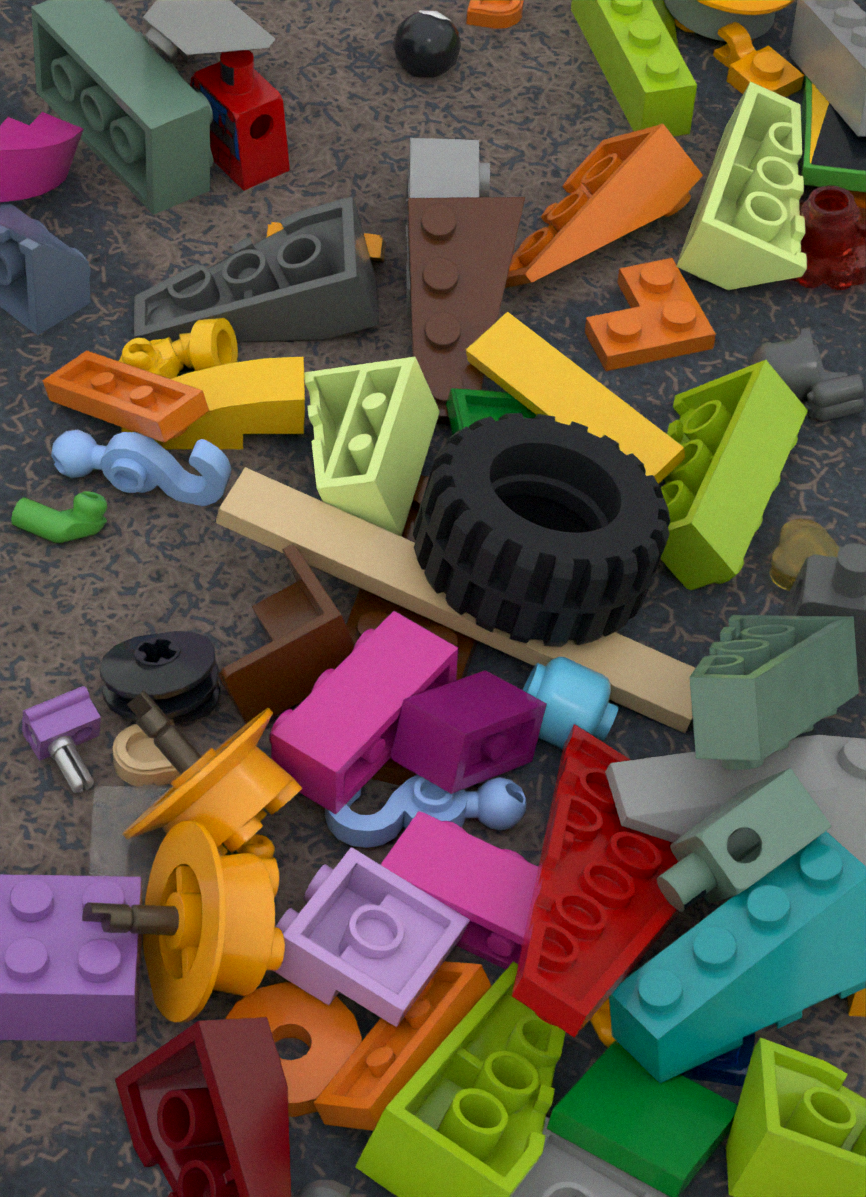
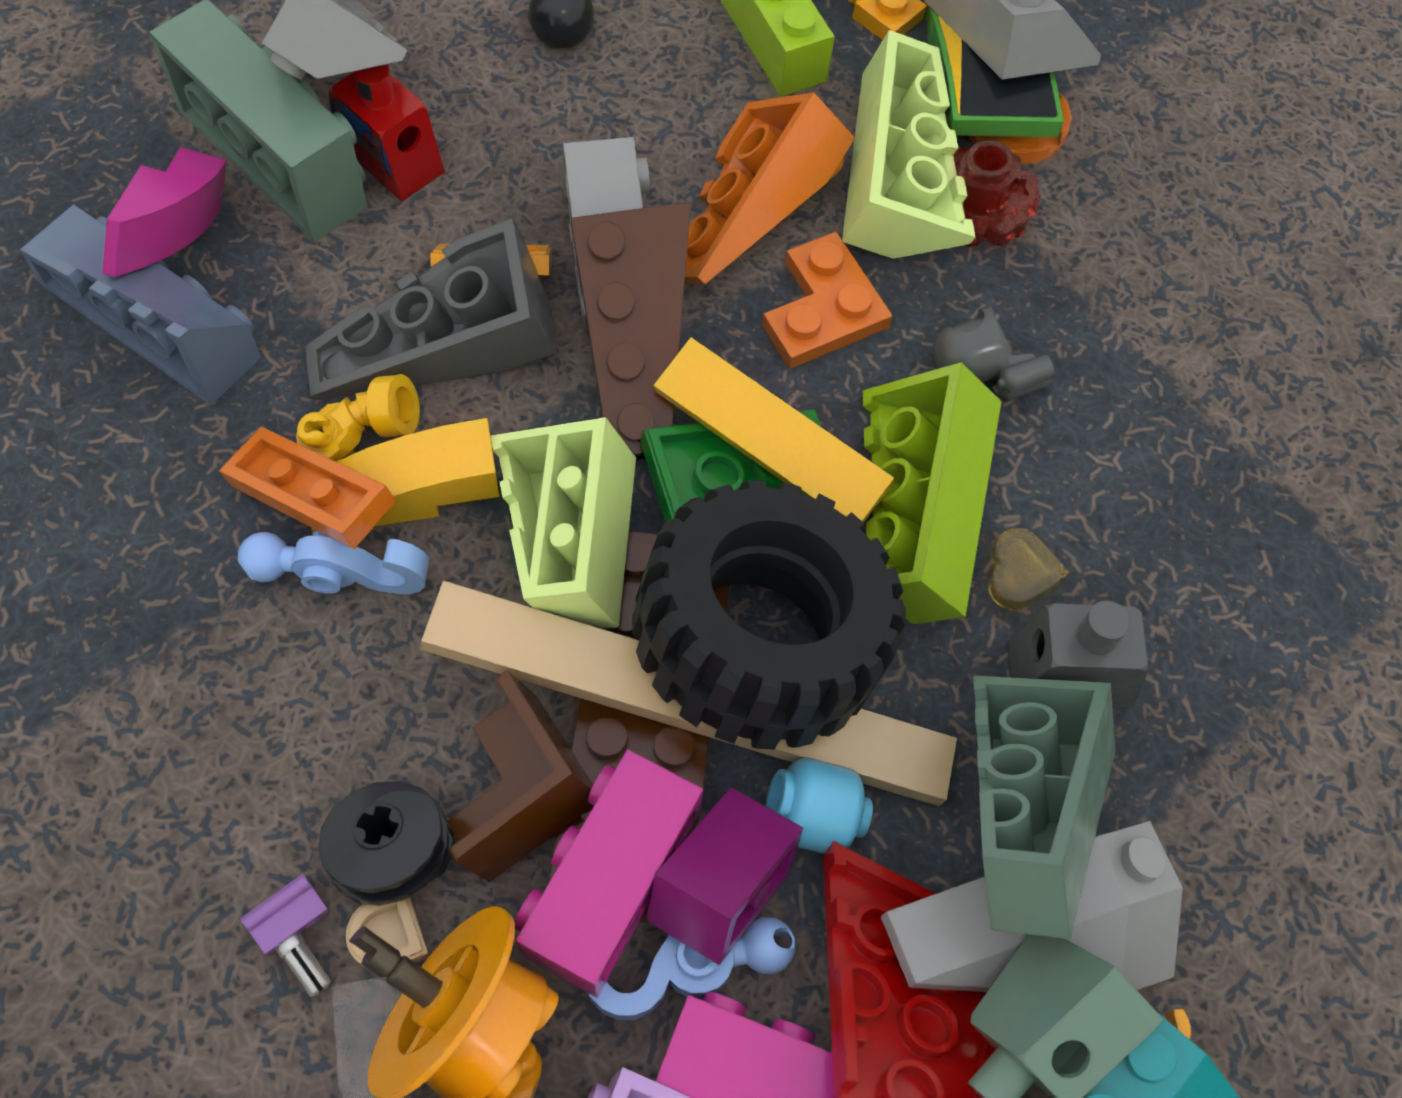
camera: 10 degrees left, 15 degrees up
(62, 526) = (263, 647): bright green arm -> none

